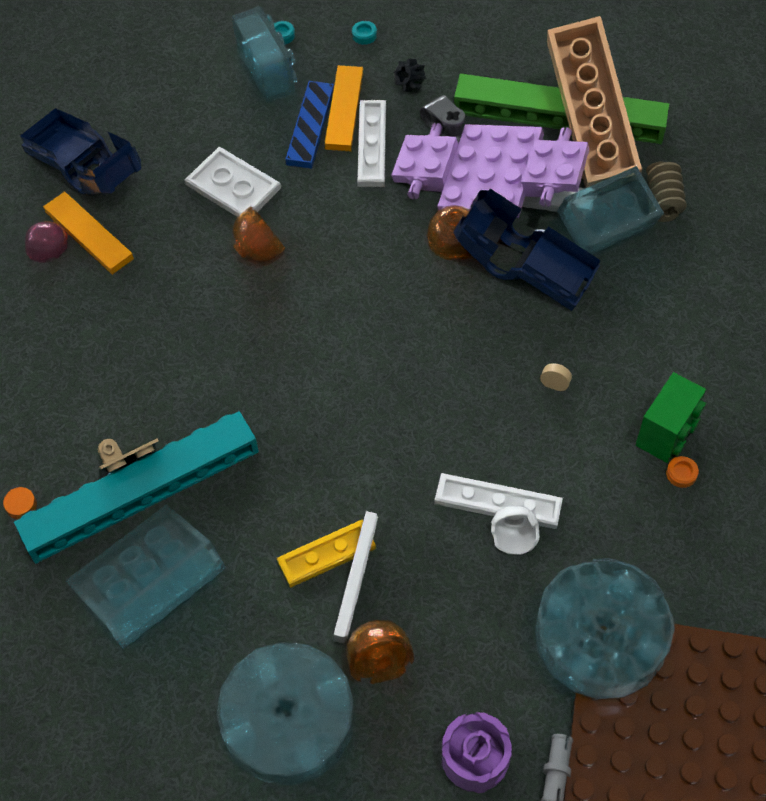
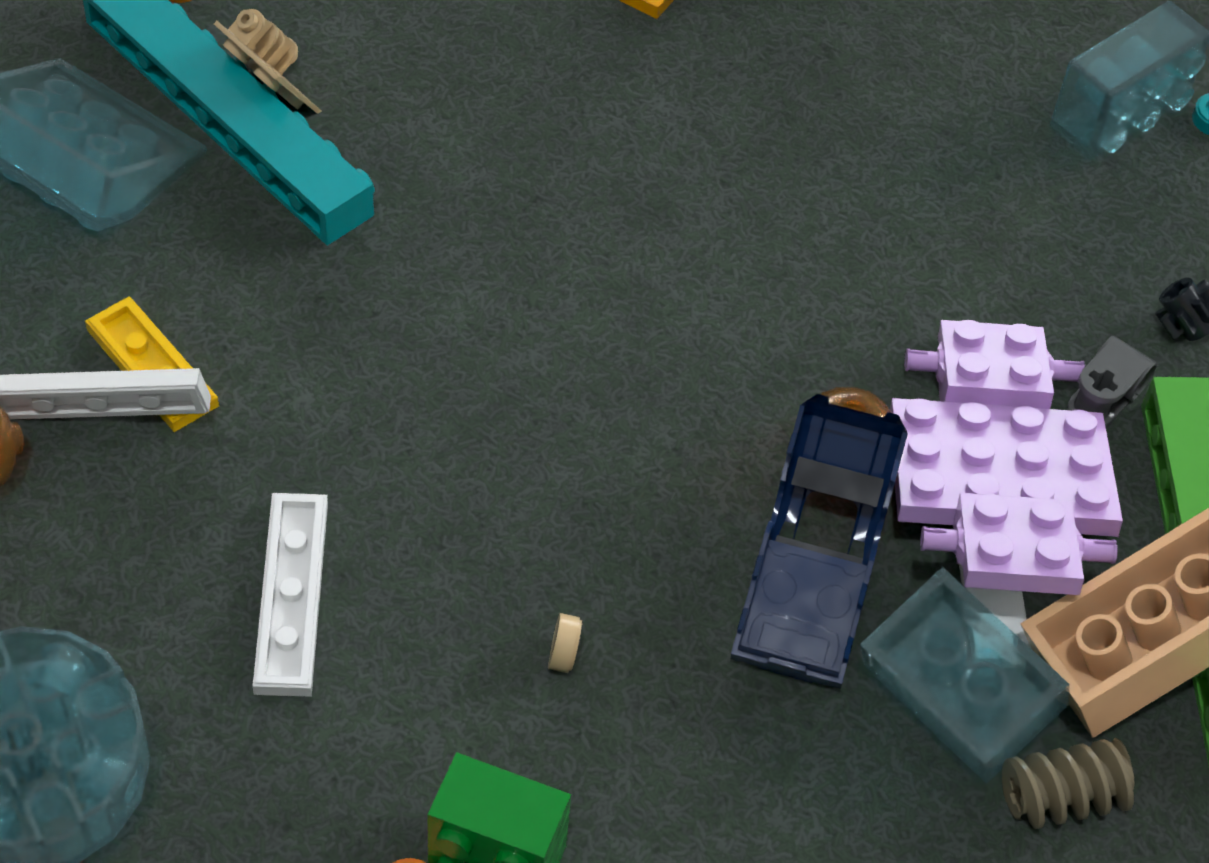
camera: 70 degrees right, 5 degrees down
(232, 183) = (848, 111): white tile -> none
(255, 237) = (735, 141): clear orange cylinder -> none
(310, 124) = (1021, 191): blue tile -> none
(344, 108) = (1079, 233): light orange tile -> none
(372, 143) = (1014, 287): white tile -> none
(515, 530) = (228, 615): white hair -> none

